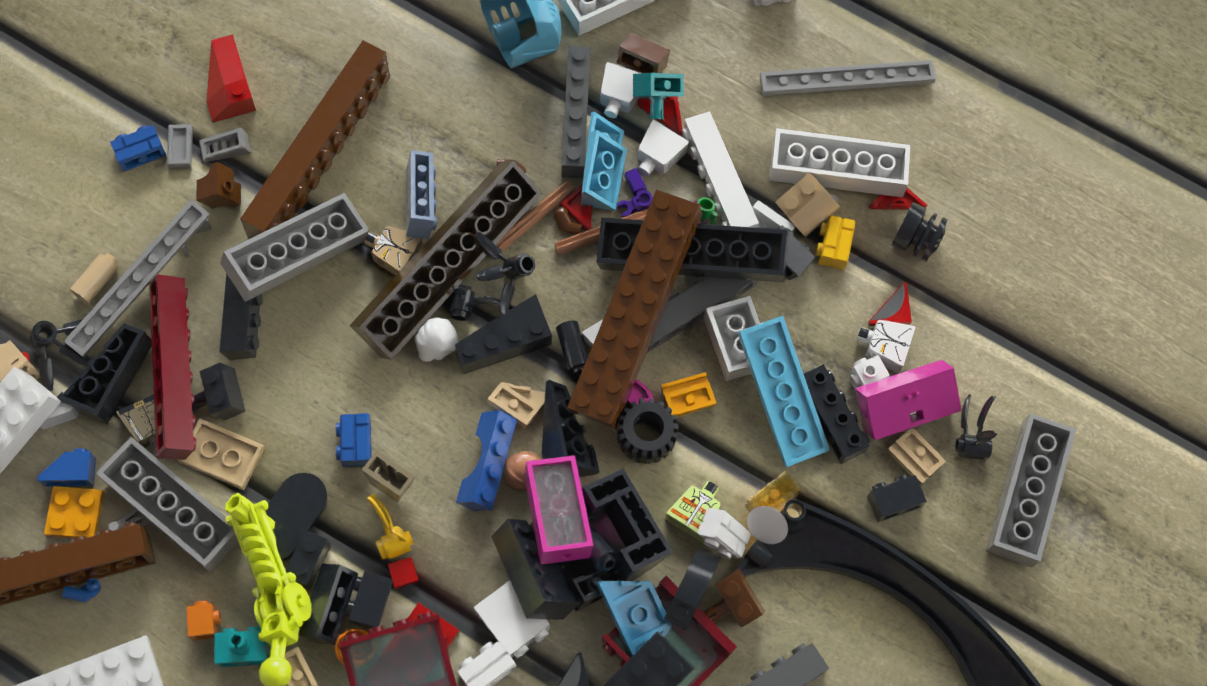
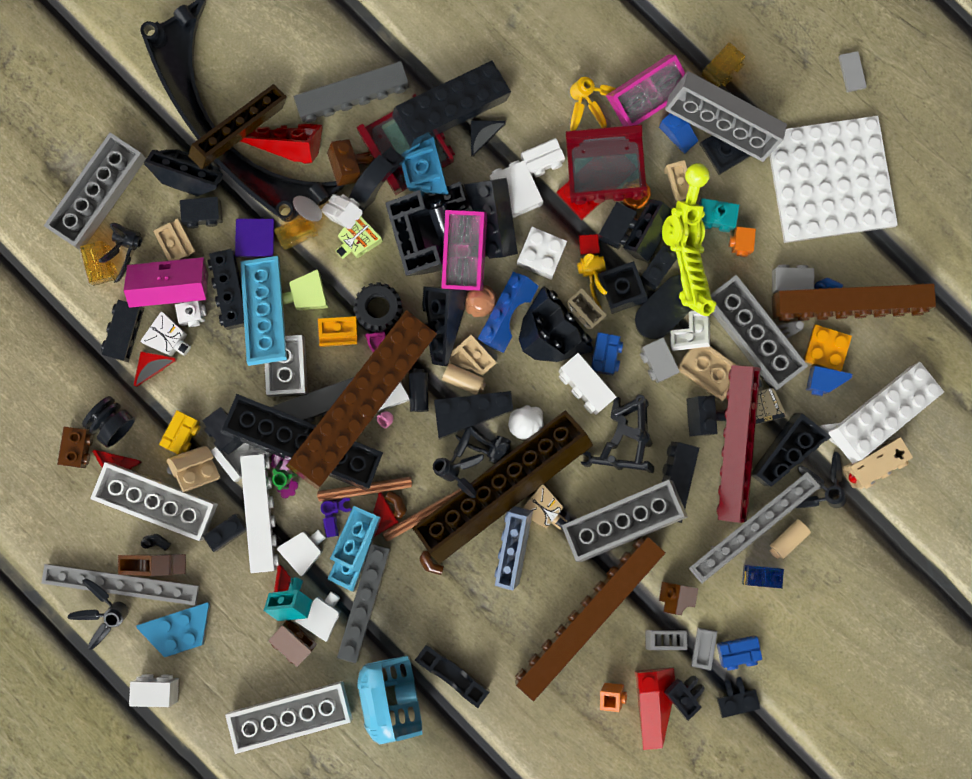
camera: 160 degrees left, 15 degrees up
(113, 228) = (763, 576): none -> clear blue hips
(129, 586) = (792, 278): none -> light grey brick
(132, 100) = (739, 702): none -> black hinge
(192, 90) = (683, 698): none -> black hinge
(252, 481) = (695, 336): none -> white plate
(275, 72) = (612, 697): none -> orange brick
(287, 447) = (659, 360): none -> light grey brick
(293, 348) = (640, 434): none -> black piece
(349, 522) = (623, 287): none -> black brick
(371, 393) = (586, 384): none -> white brick
(431, 450) = (551, 330): none -> black brick
(438, 52) = (452, 674): none -> black arch
(461, 544) = (541, 253): none -> white brick
(522, 372) = (464, 379): none -> tan brick
(601, 308) = (385, 419): none -> bright pink hinge
(738, 430) = (306, 292): none -> yellowish green torso
(751, 149) = (225, 532): none -> black brick
(772, 47) = (178, 630): none -> dark azure wing
(815, 612) = (295, 144): none -> red wedge
(816, 92) = (152, 564): none -> reddish brown brick
(822, 483) = (254, 238): none -> dark purple tile
(829, 128) = (155, 540): none -> black arm
(843, 43) = (112, 617): none -> black plant
(884, 602) = (237, 126): none -> dark brown brick
(935, 542) = (180, 172): none -> black wedge
(940, 333) = (122, 331): none -> black brick
(948, 201) = (75, 447): none -> reddish brown brick
(1003, 413) = (97, 272): none -> clear yellow brick

